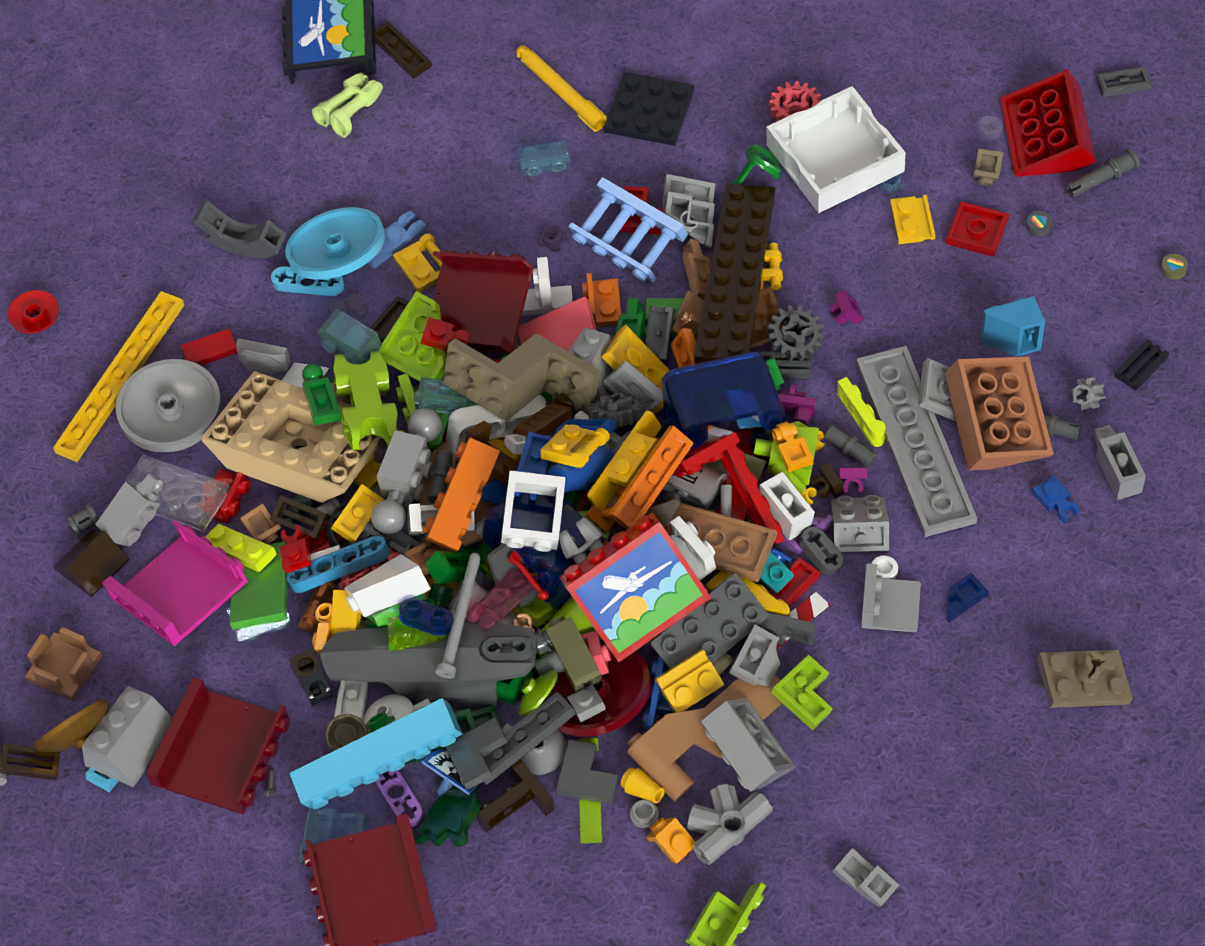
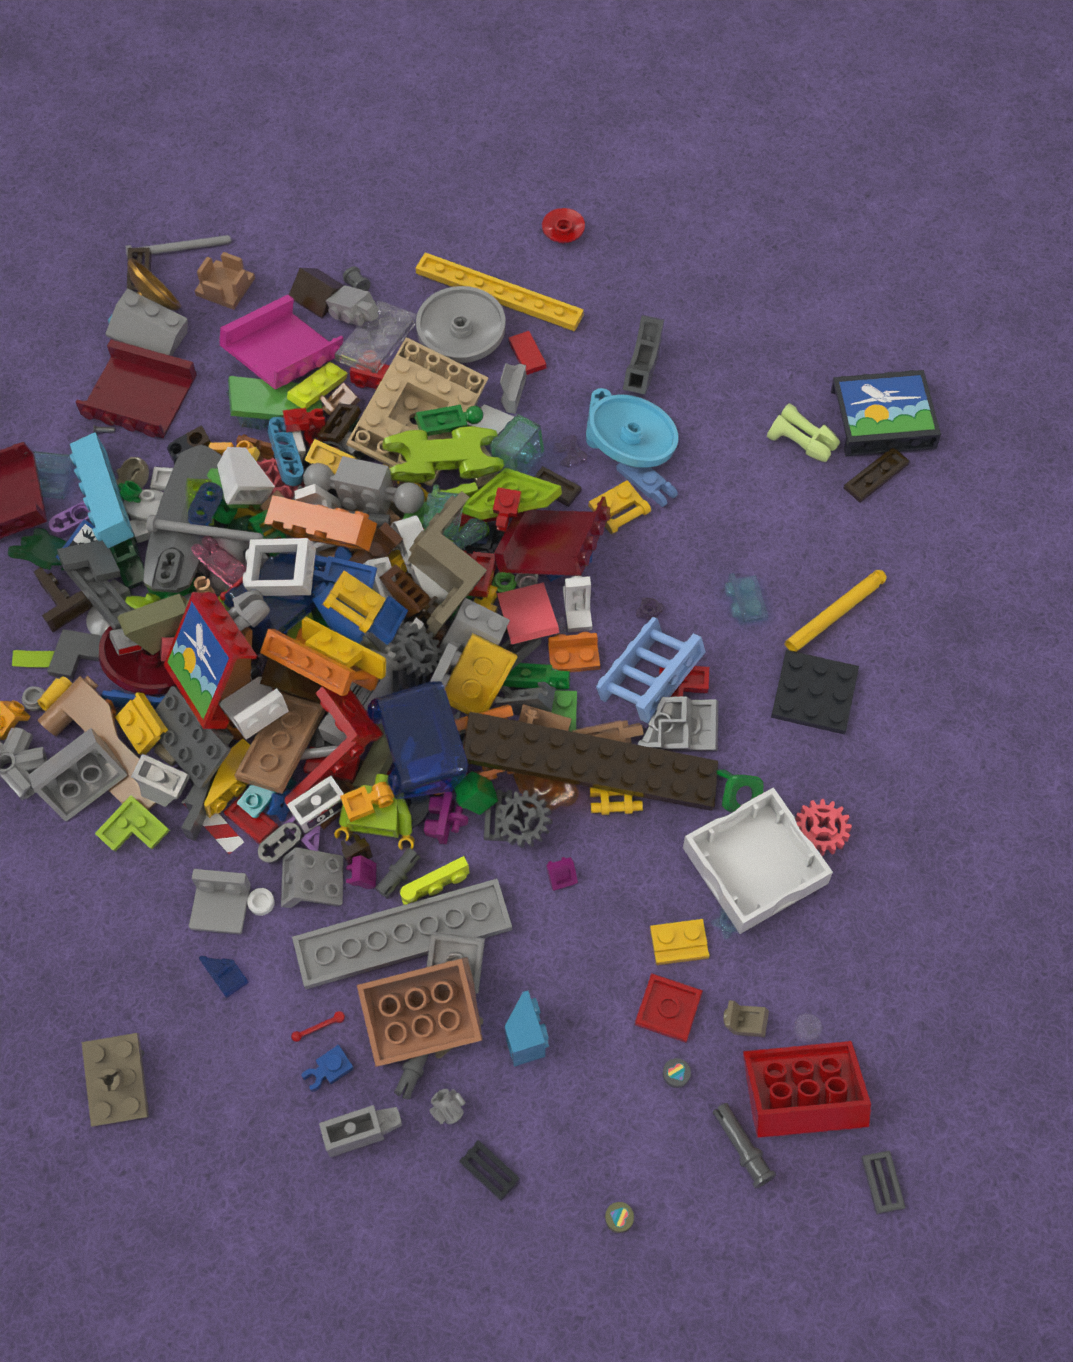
camera: 85 degrees right, 5 degrees up
(1003, 494) = (338, 1017): none -> red hinge

